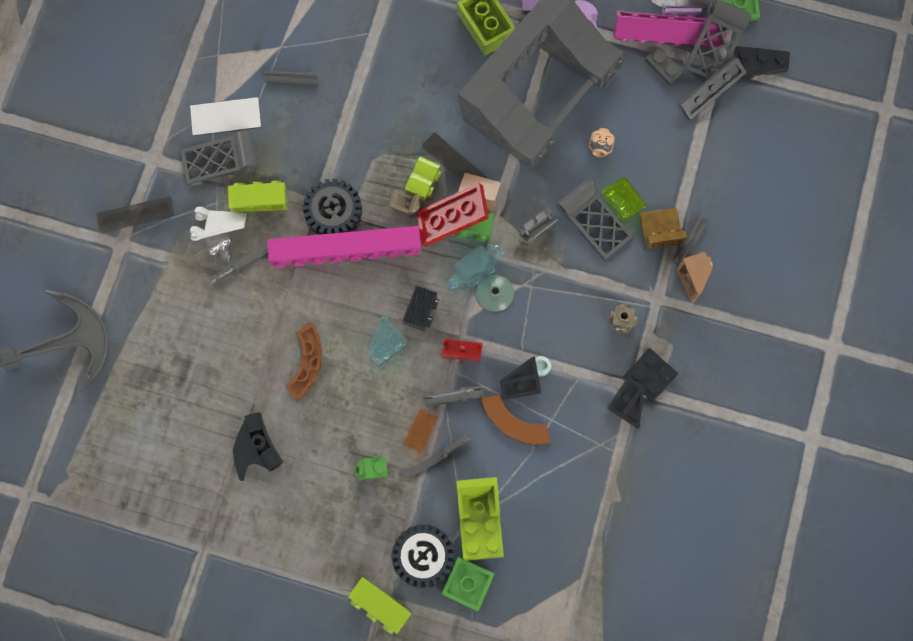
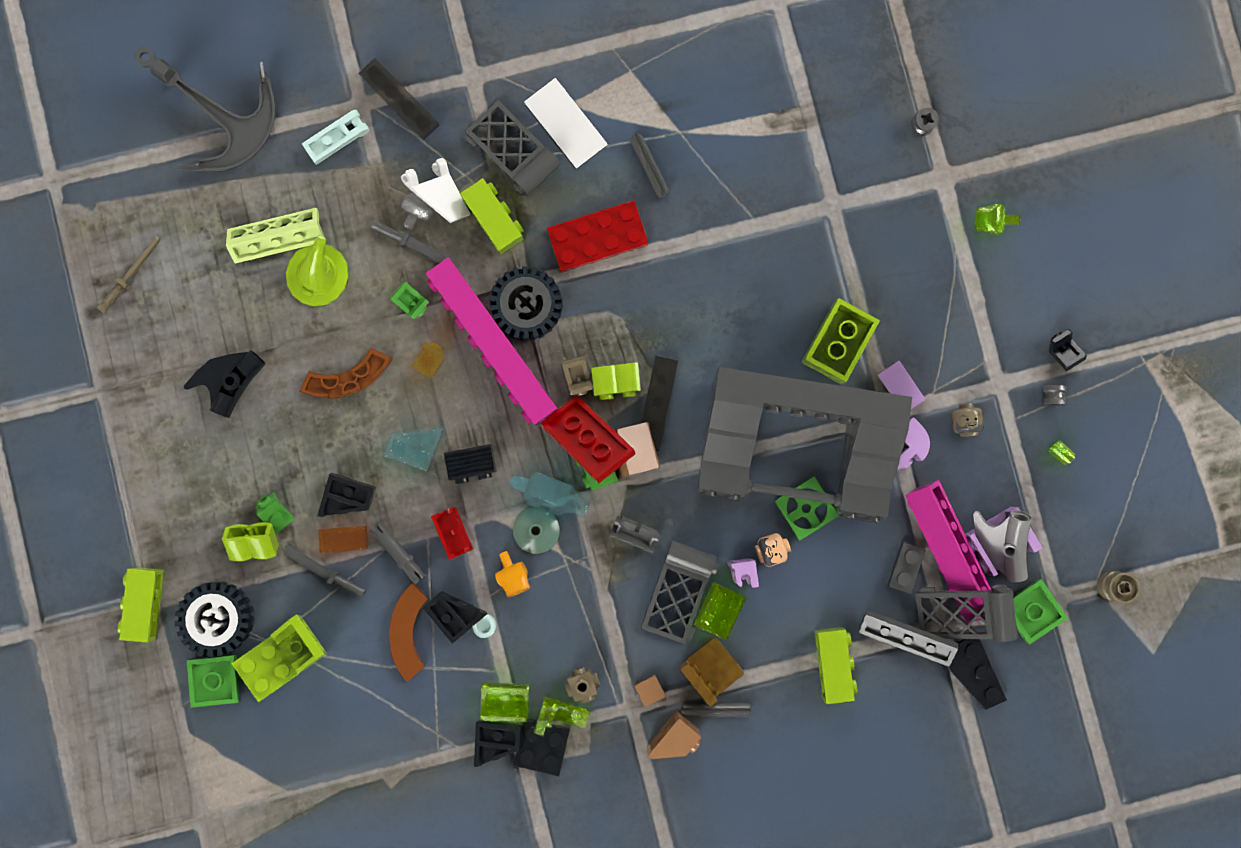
camera: 55 degrees right, 10 degrees up
(132, 273) = (335, 137): none -> light aqua plate
(136, 484) = (119, 288): none -> dark tan sword
(175, 354) = (273, 238): none -> yellowish green fence
(219, 341) = (317, 274): none -> lime piece
(280, 286) = (409, 300): none -> bright green bracket
(316, 138) = (597, 236): none -> red plate
(330, 295) = (429, 359): none -> clear yellow bracket
(382, 495) = (250, 541): none -> lime brick
(390, 410) = (345, 496): none -> black wing
(518, 325) = (513, 576): none -> light orange piece
(600, 120) = (799, 532): none -> bright green piece
(604, 380) = (504, 702): none -> clear neon green bracket
(607, 162) = (743, 570): none -> lavender hinge
(633, 345) = (560, 711): none -> clear neon green bracket
(652, 278) = (649, 690): none -> medium nougat tile
(704, 145) = (835, 665): none -> lime brick

